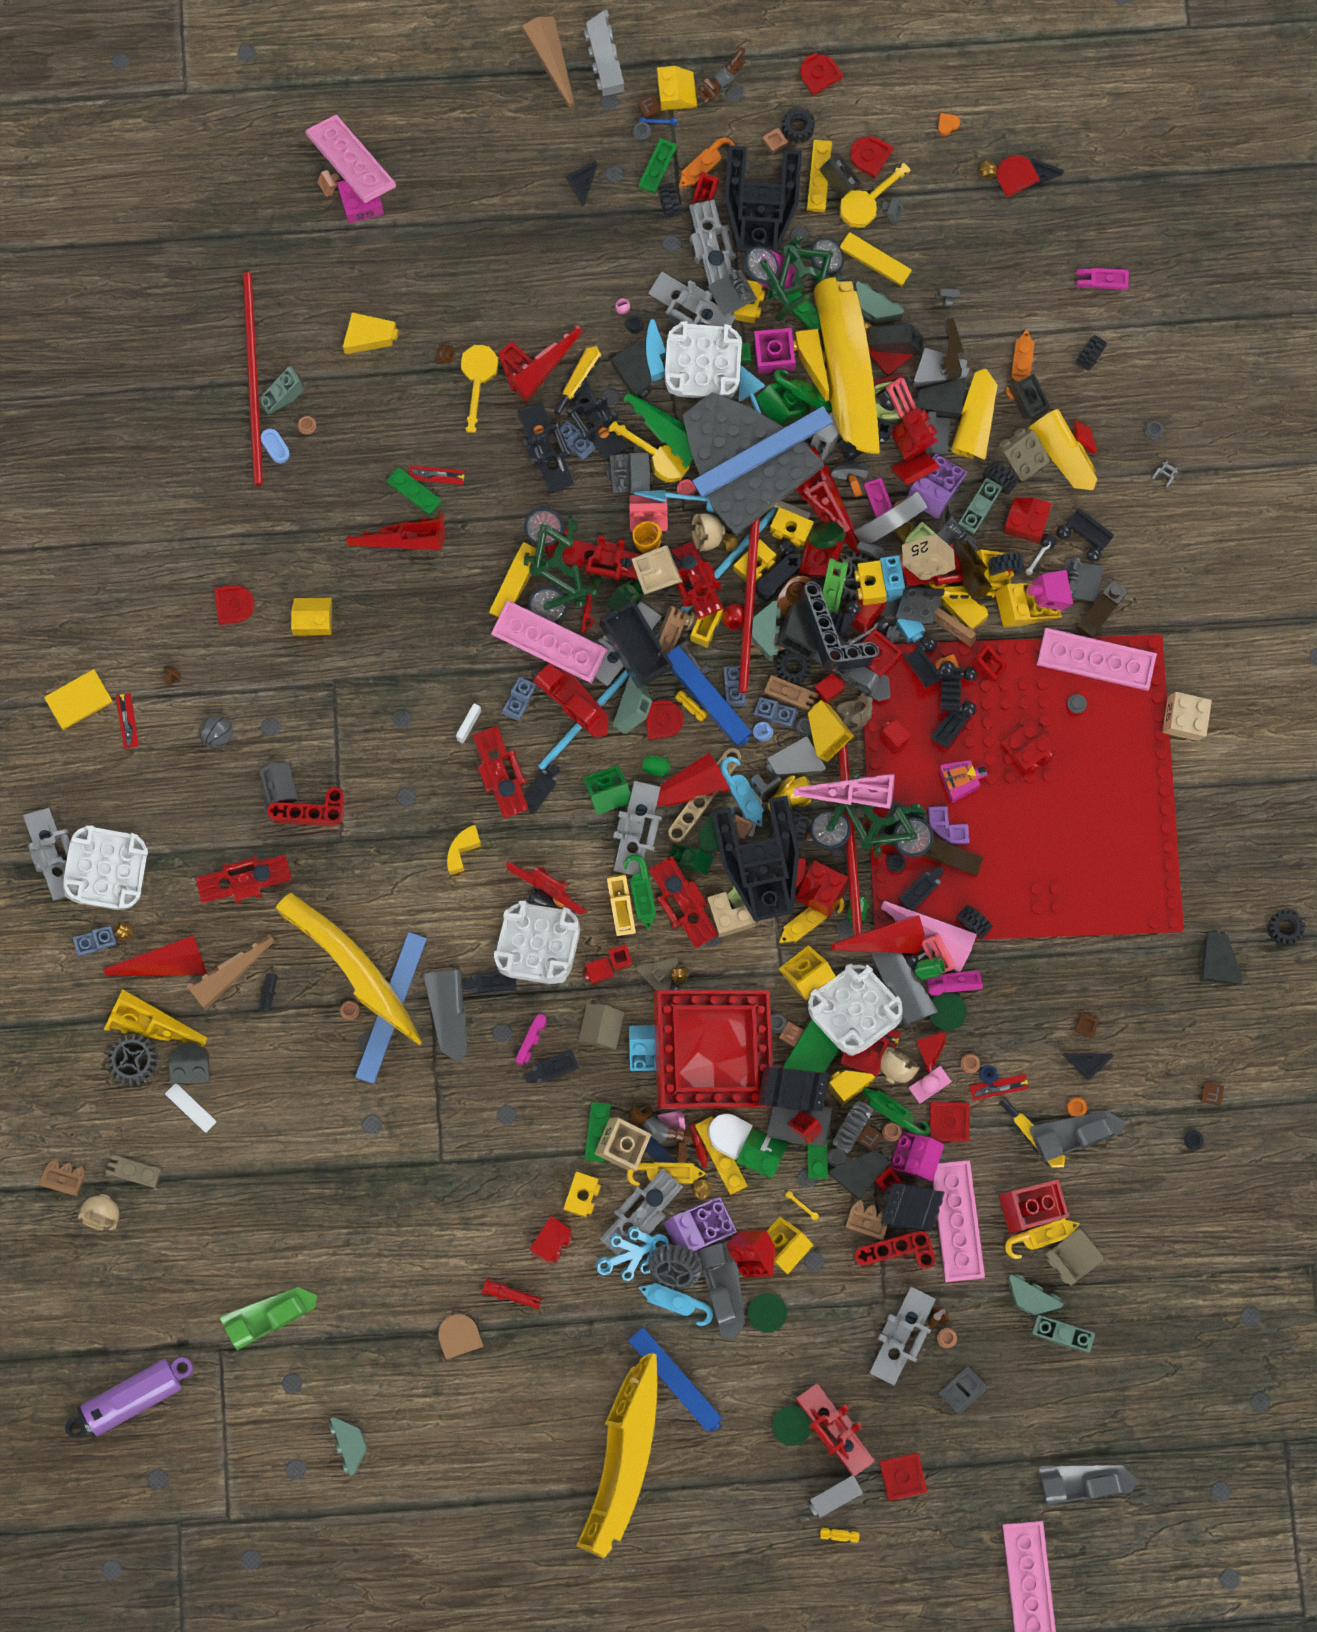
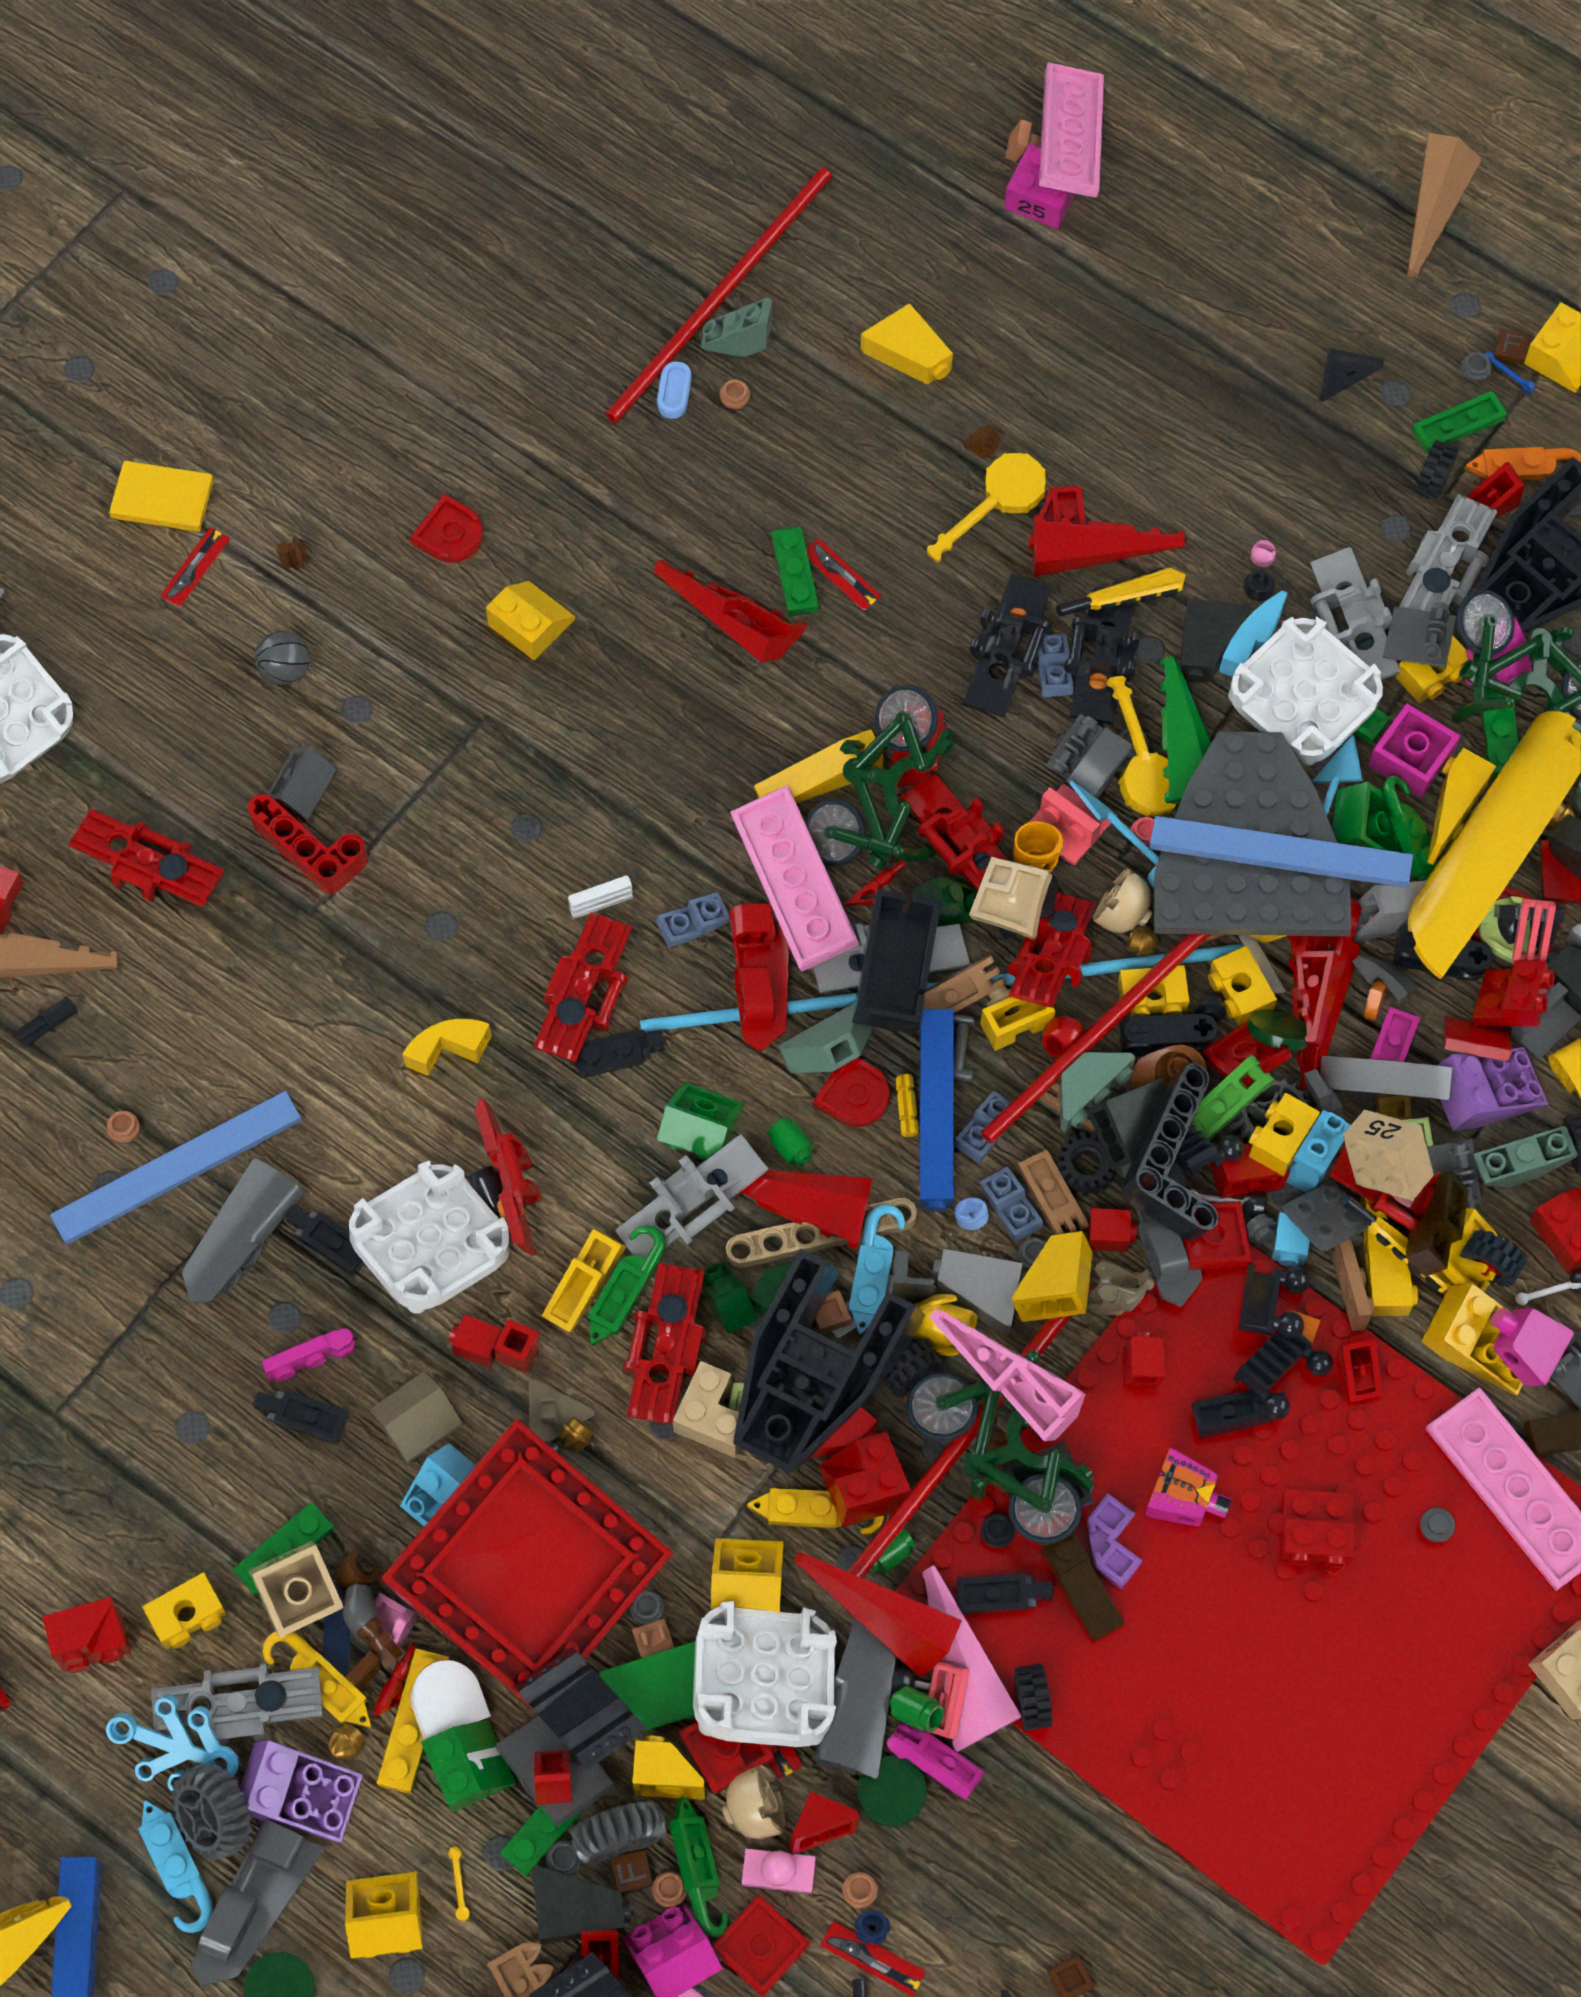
camera: 40 degrees right, 10 degrees down
(369, 983) = (175, 1081): yellow slope -> none
(604, 55) = (1506, 243): light grey wedge -> none
(753, 1253) = (329, 1885): red slope -> none

